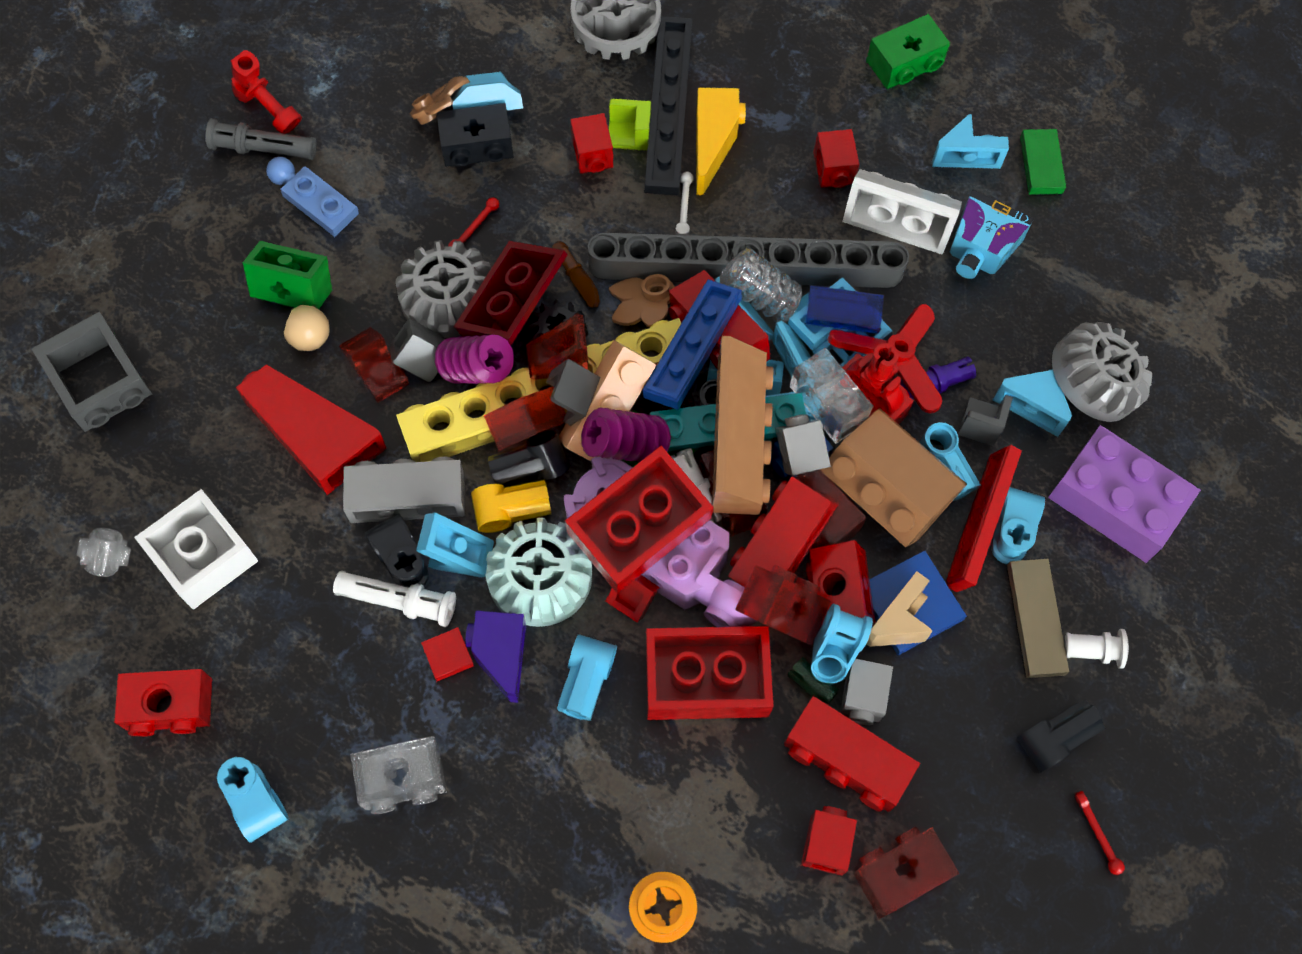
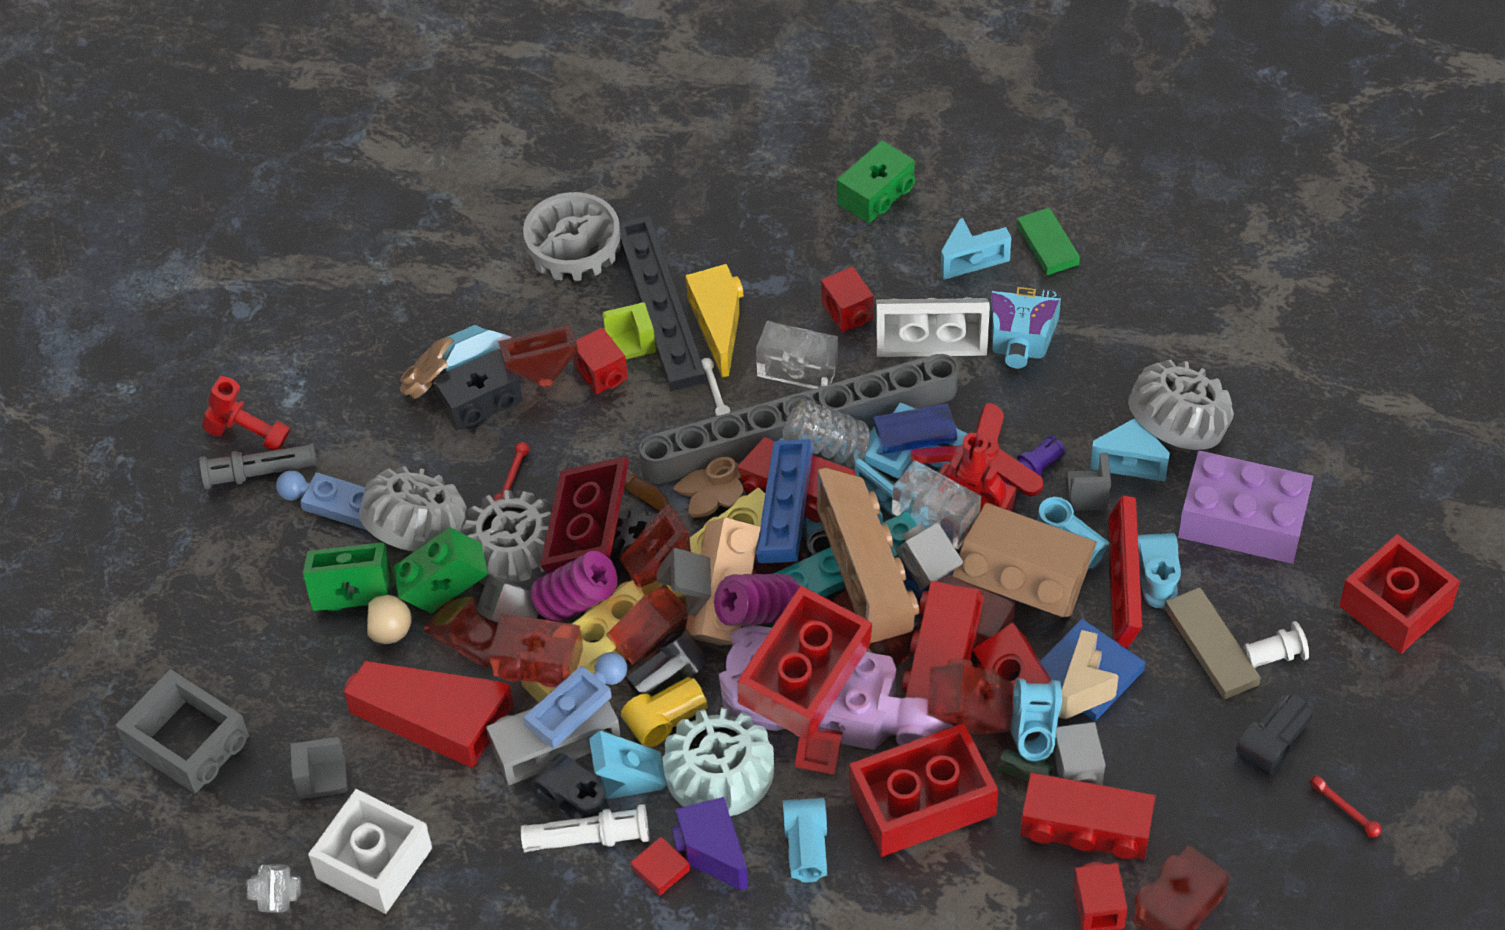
camera: 15 degrees left, 15 degrees down
(190, 449) = (319, 768): none -> dark grey panel
(359, 239) = (410, 508): none -> light grey gear
(366, 299) = (440, 570): none -> green brick
(401, 397) = (535, 650): none -> clear red brick
(428, 472) = (575, 700): none -> medium blue plate
(538, 120) = (540, 354): none -> clear red slope
(768, 198) = (796, 355): none -> clear brick
(1236, 638) = (1399, 593): none -> red brick

